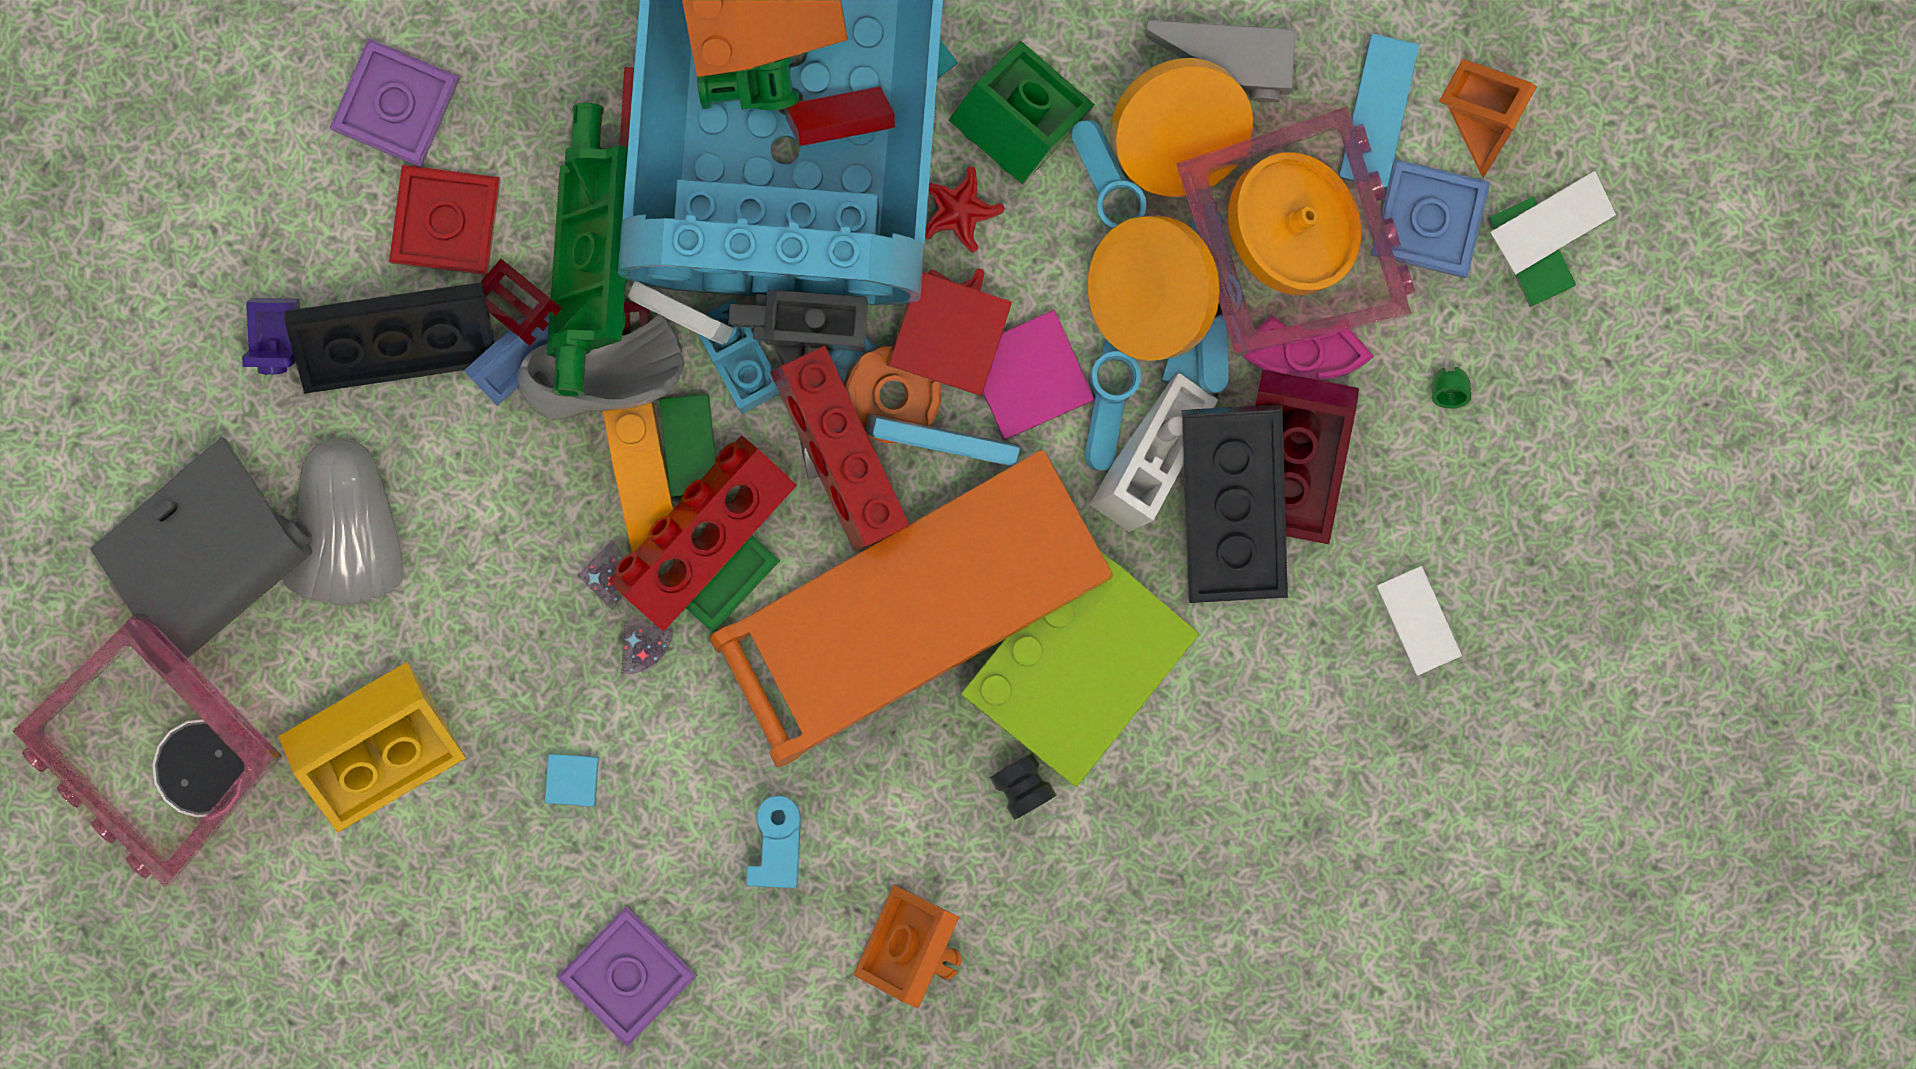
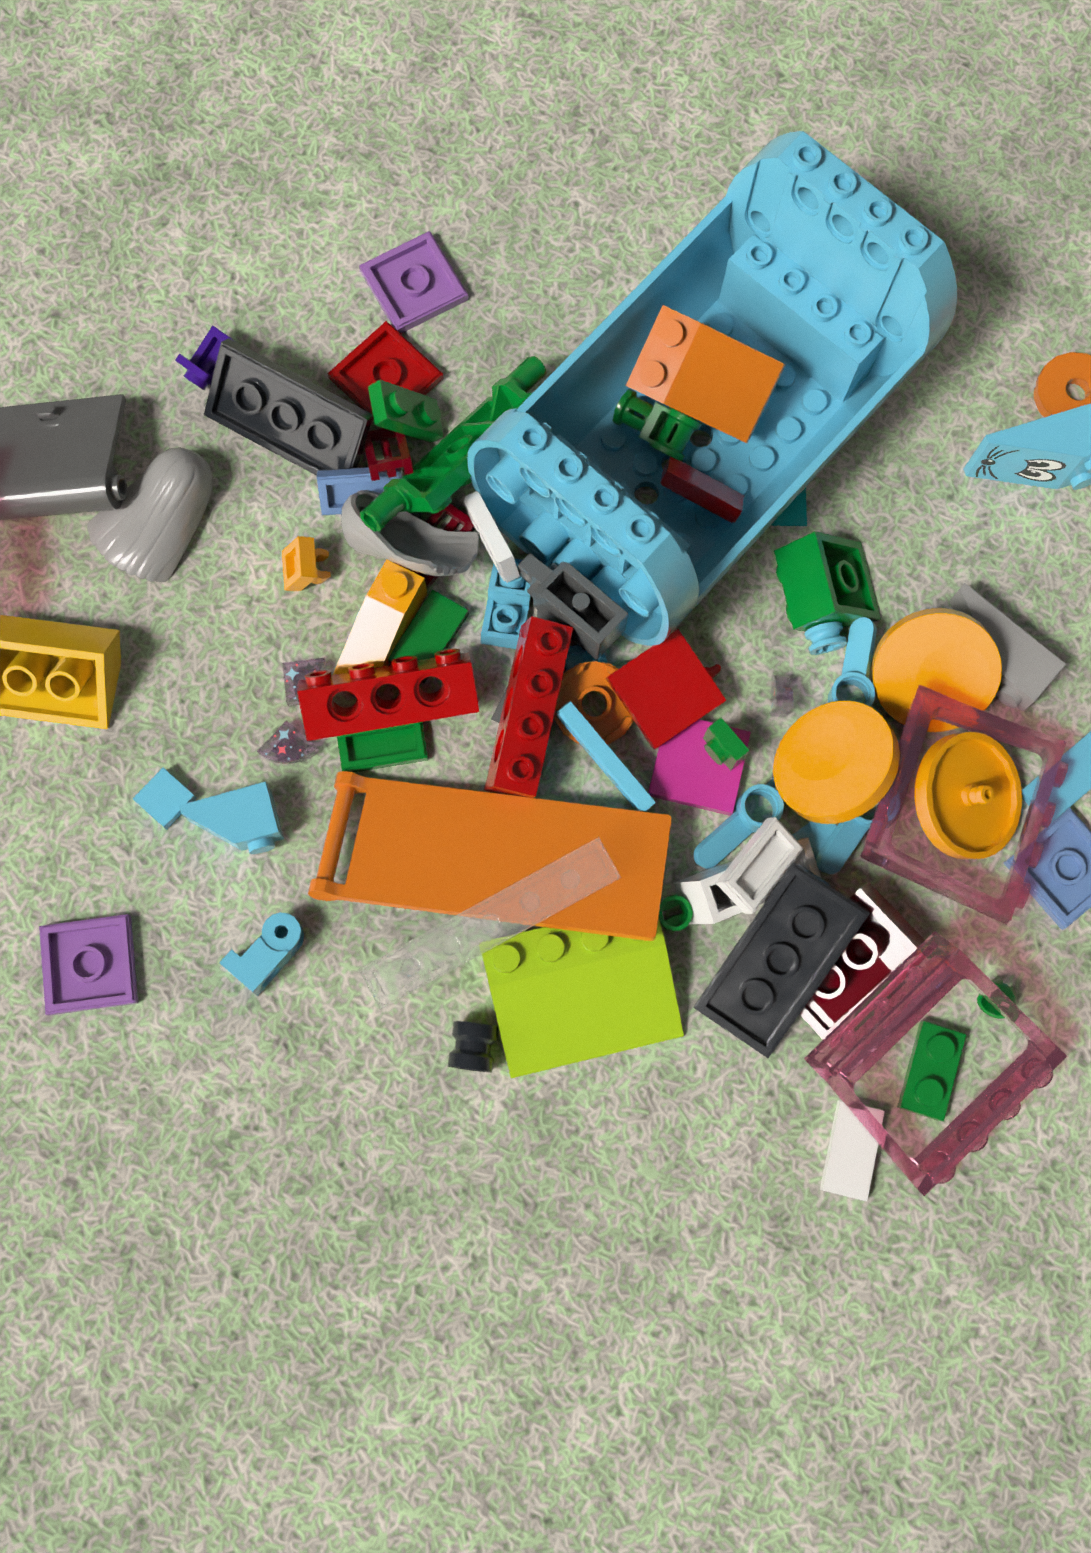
camera: 35 degrees right, 10 degrees down
(502, 248) = (405, 411): none -> green plate
(519, 469) = (300, 564): none -> light orange tile
(657, 746) = (239, 817): none -> medium azure slope
(909, 947) = (297, 1101): orange tile -> none
(959, 671) = (490, 923): none -> clear tile
(960, 210) = (735, 617): red animal -> none
(1041, 347) = (724, 745): none -> green plate
(1056, 253) = (781, 696): none -> tile
(1057, 166) = (825, 638): none -> medium azure bush
(1118, 537) = (677, 921): none -> green hinge
(1155, 436) = (759, 865): none -> white tile
(1314, 358) = (917, 905): dark pink tile -> none
(1364, 480) = (889, 1015): none -> clear pink windscreen
(1438, 497) = (931, 1071): none -> green plate

